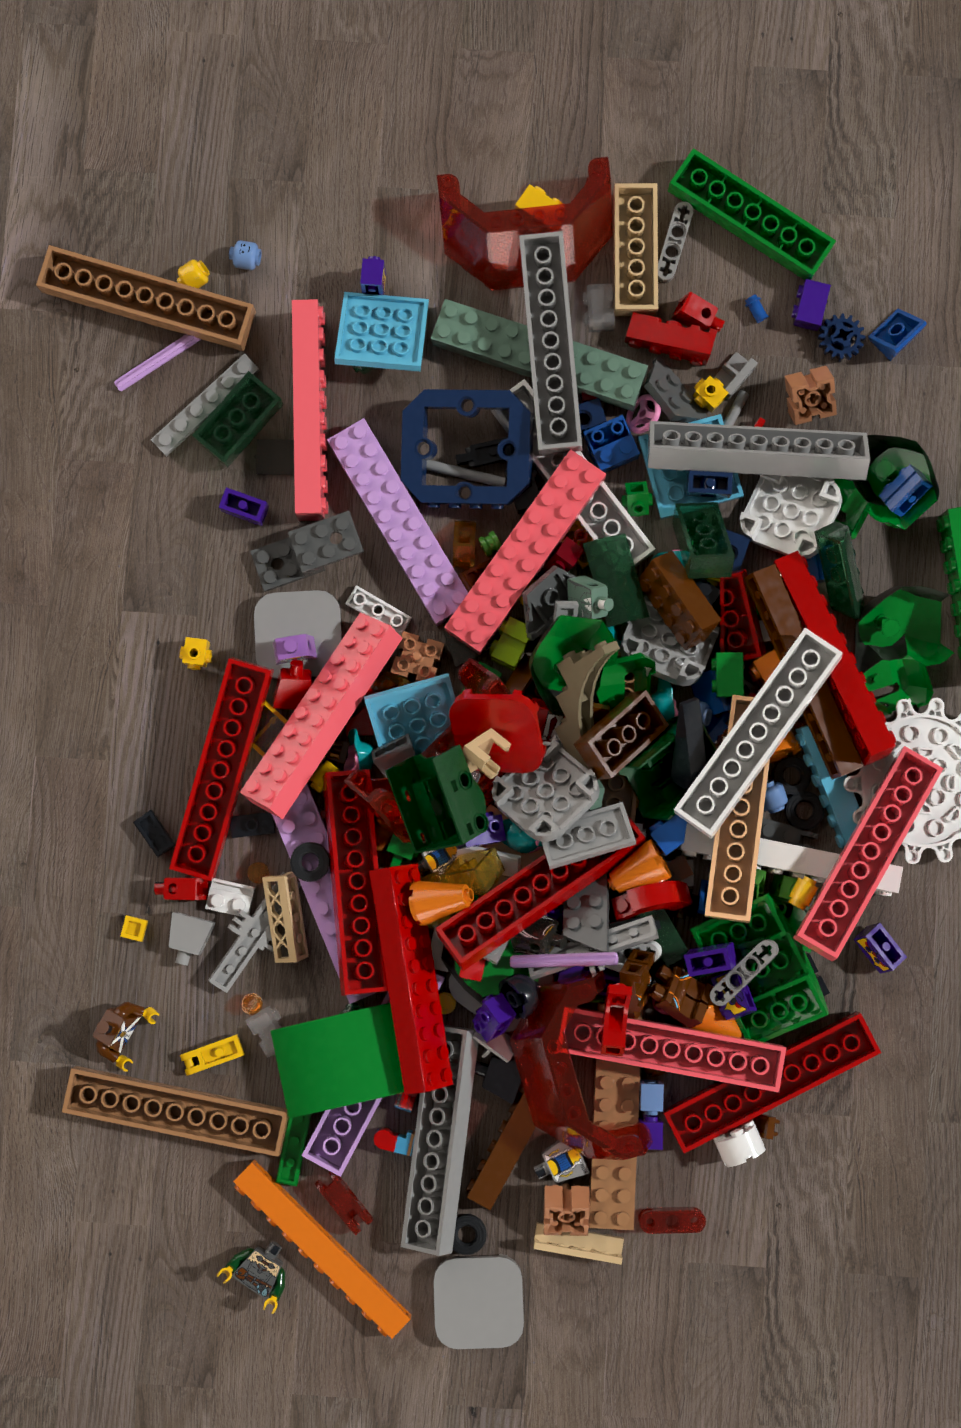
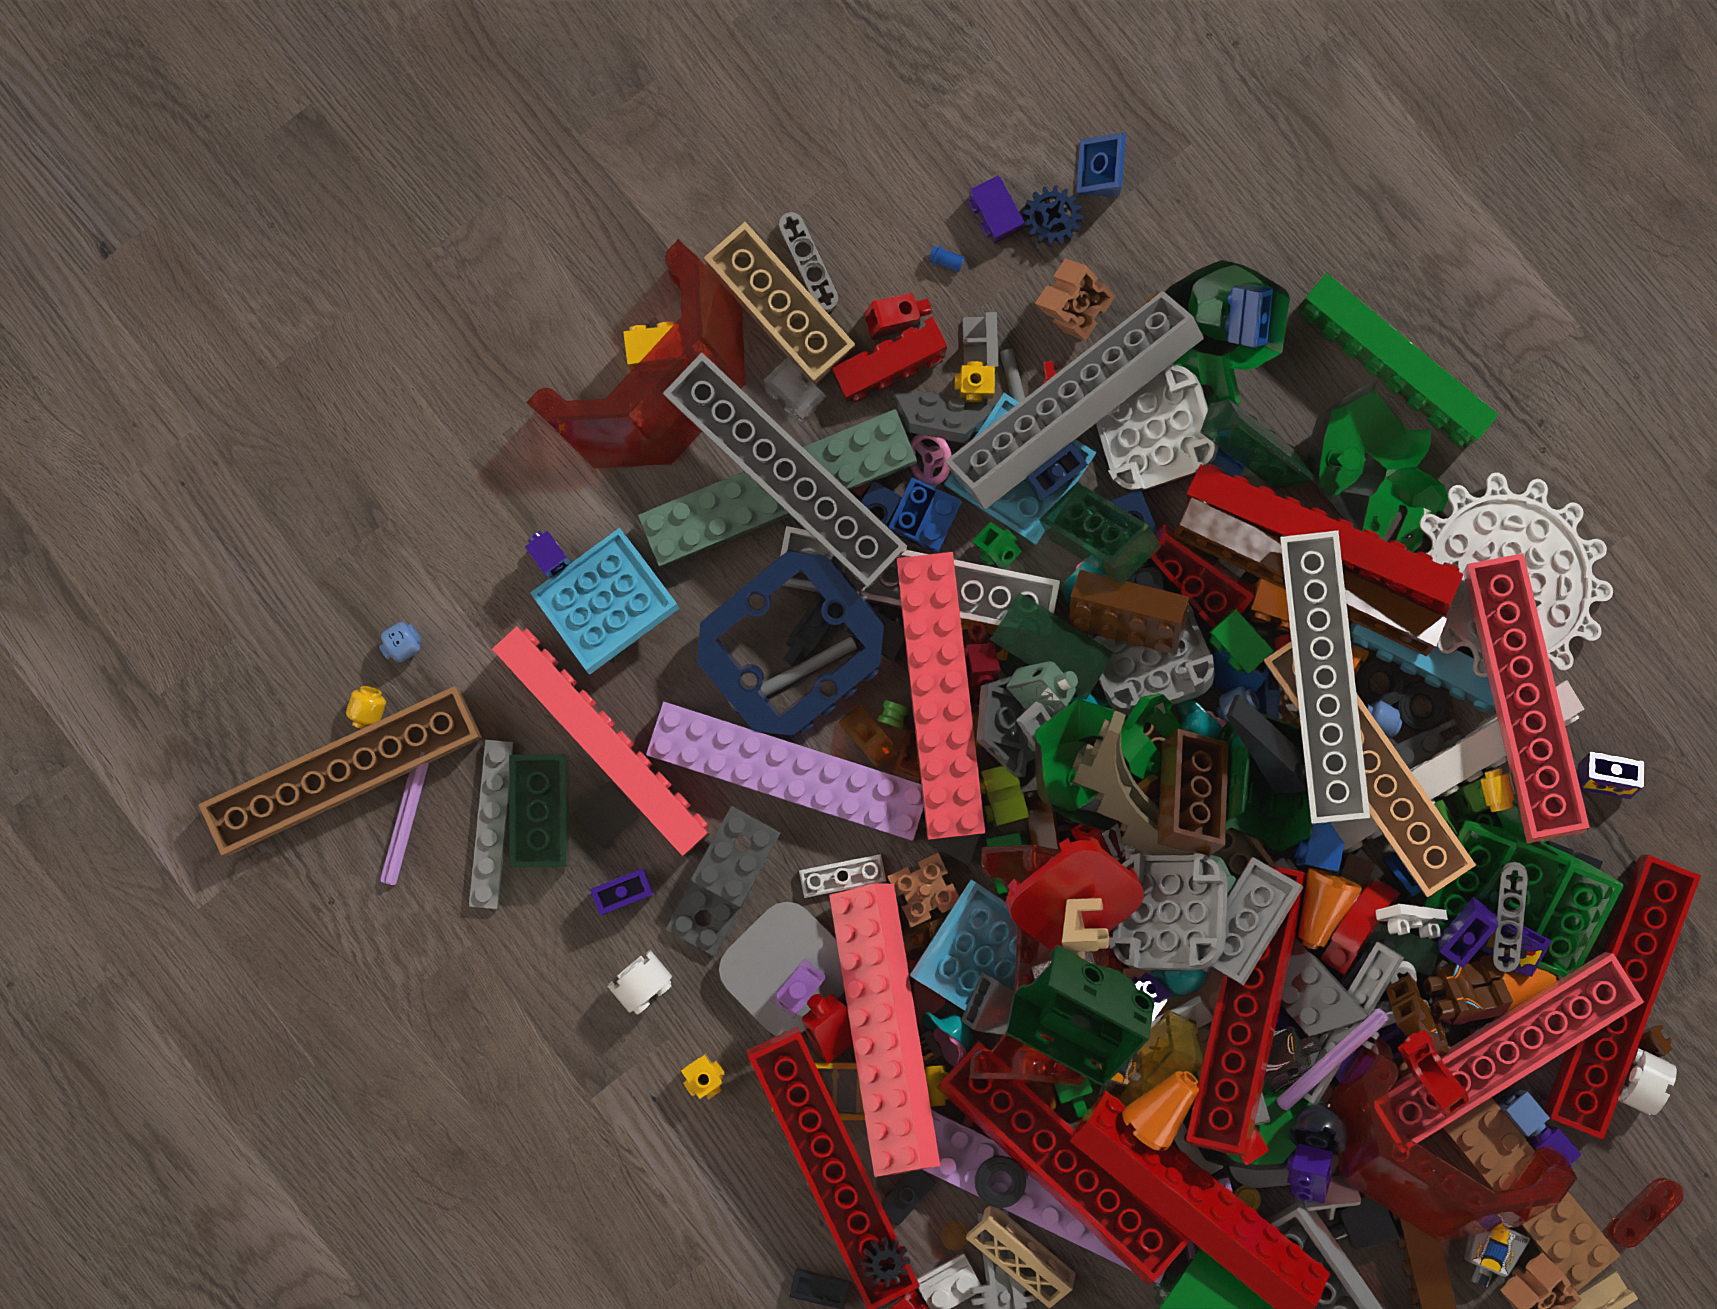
camera: 50 degrees left, 0 degrees up
(199, 854) = (882, 1252): none -> black gear
(208, 567) = (640, 982): none -> white brick
(681, 916) = (1406, 917): none -> white plate
(751, 215) = (862, 172): green brick -> none

